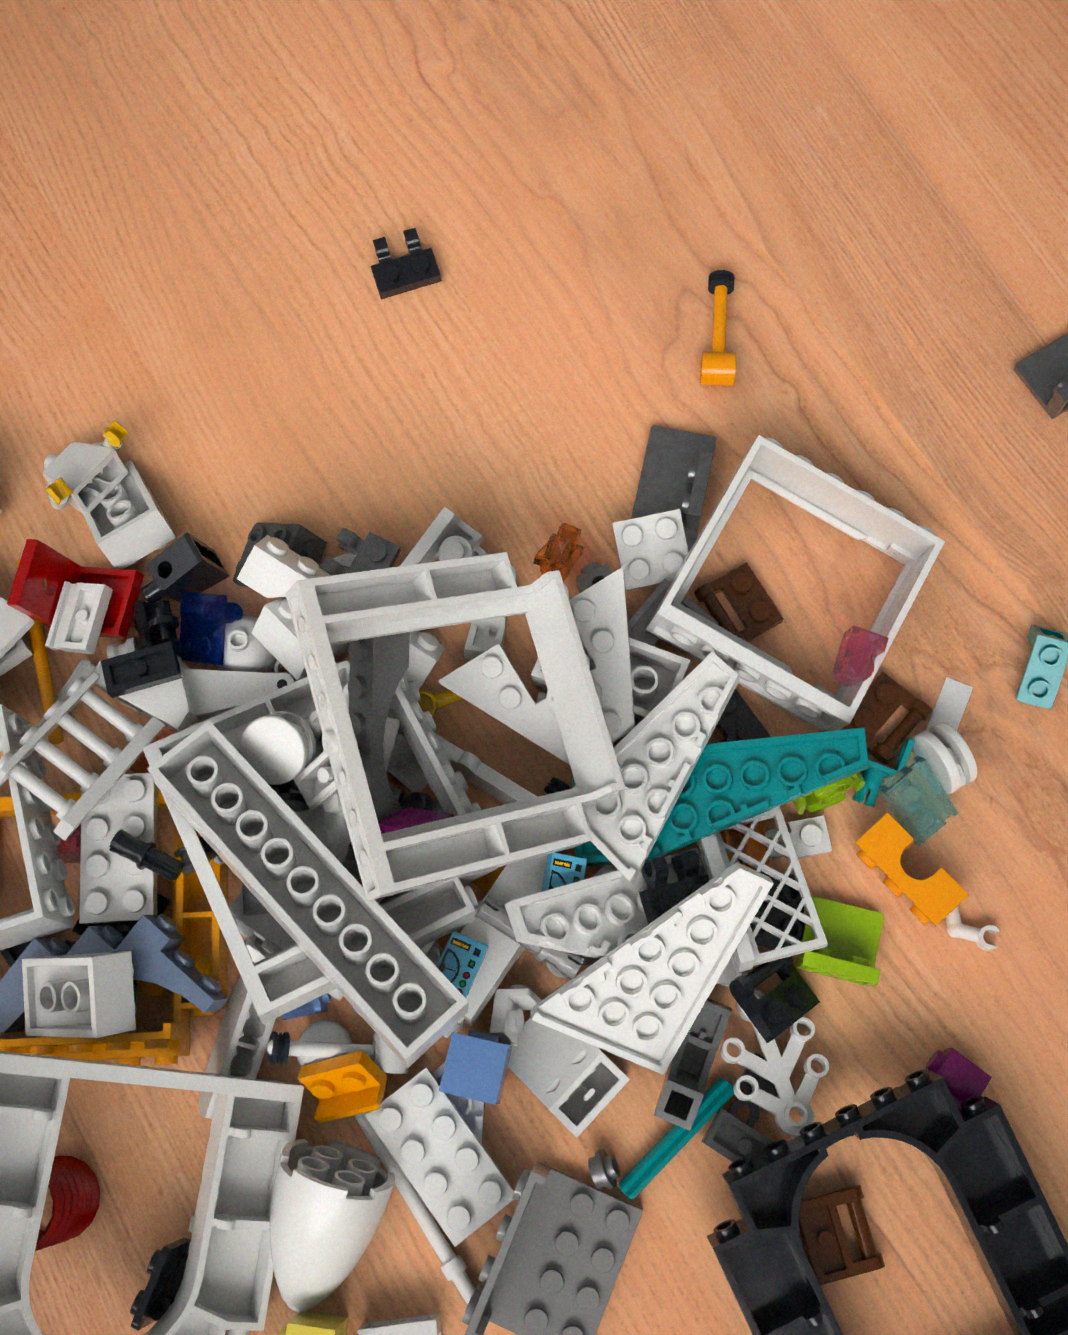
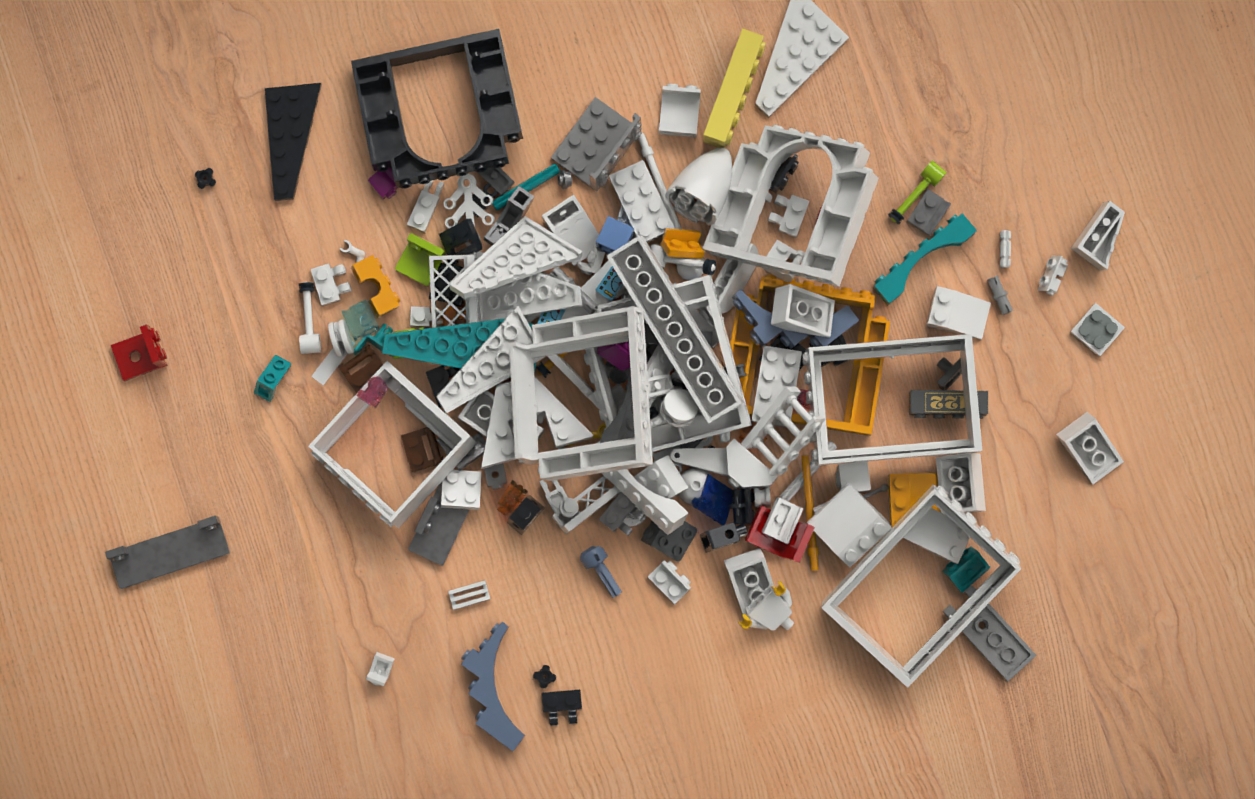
camera: 170 degrees left, 10 degrees up
(141, 669) = (746, 472): black plate -> none
(144, 1198) = (793, 216): none -> white plate
(146, 855) = (759, 374): black axle -> none
(156, 1106) = (783, 252): none -> white plate
(264, 487) = (669, 581): none -> white bracket
(390, 483) = (594, 558): none -> sand blue piece
(438, 293) = (544, 671): none -> black plate
(510, 223) = (482, 664): none -> sand blue arch
(530, 530) = (525, 514): none -> black torso
(589, 383) = (453, 599): none -> white tile
(663, 896) = (498, 296): black plate -> none
(709, 245) = (380, 669): none -> white bracket
(718, 365) = (395, 592): light orange piece -> none
(826, 1237) = (466, 126): reddish brown plate -> none
(860, 1050) = (425, 207): none -> white hinge
(998, 741) = (308, 342): none -> white piece
(1001, 856) = (326, 285): none -> white plate

